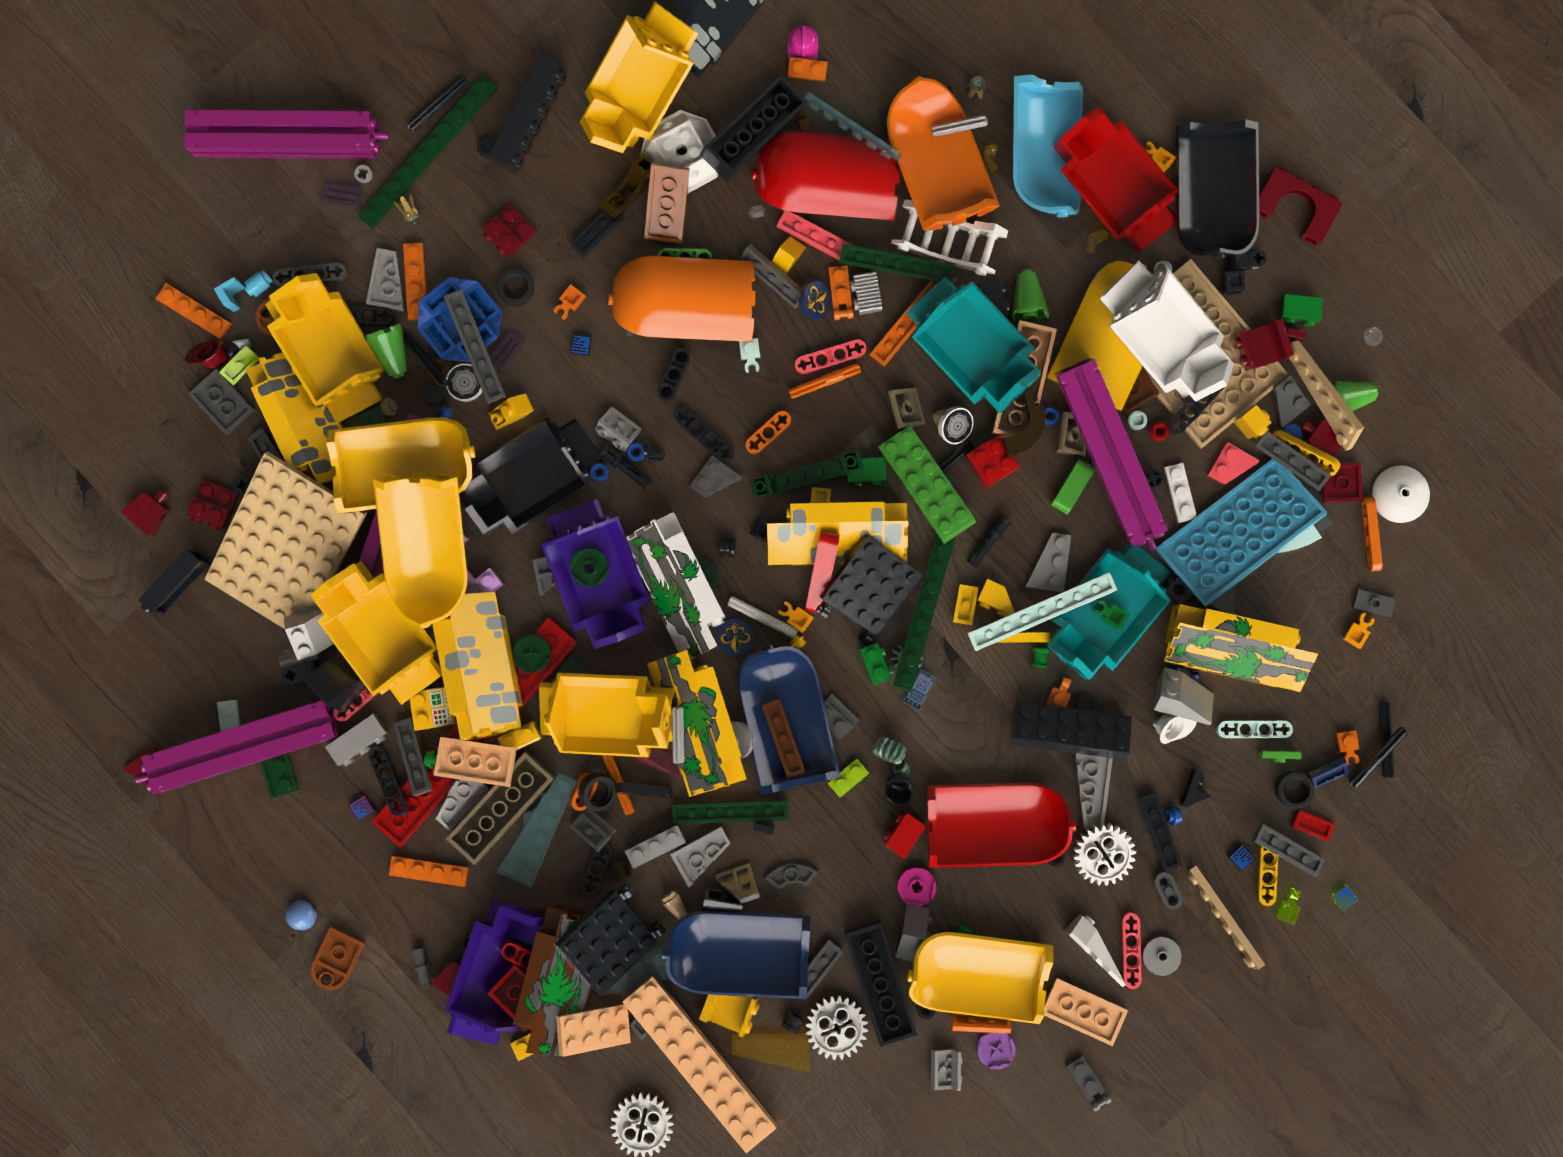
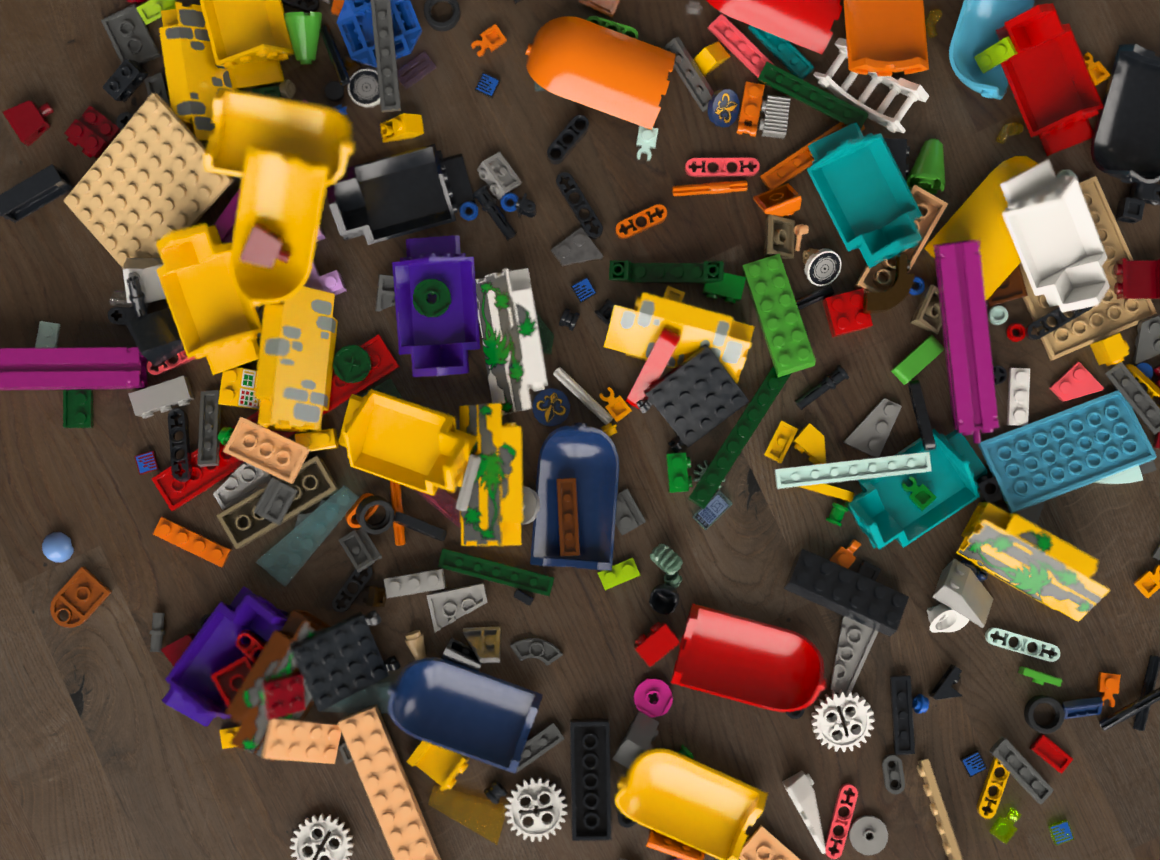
camera: 15 degrees right, 0 degrees up
(230, 445) = (125, 80): none -> black brick
(306, 651) = (136, 296): none -> black pin
(416, 569) = (264, 247): none -> torso
(499, 808) = (275, 501): none -> dark grey plate
(563, 991) = (284, 695): none -> dark red plate
(732, 515) = (583, 290): none -> tile
(859, 229) = (784, 52): none -> teal tile
(894, 374) = (779, 201): none -> orange slope
(923, 395) = (800, 230): none -> light nougat hand
(1059, 172) = (995, 55): none -> lime plate
(1092, 539) = (921, 415): none -> black beam

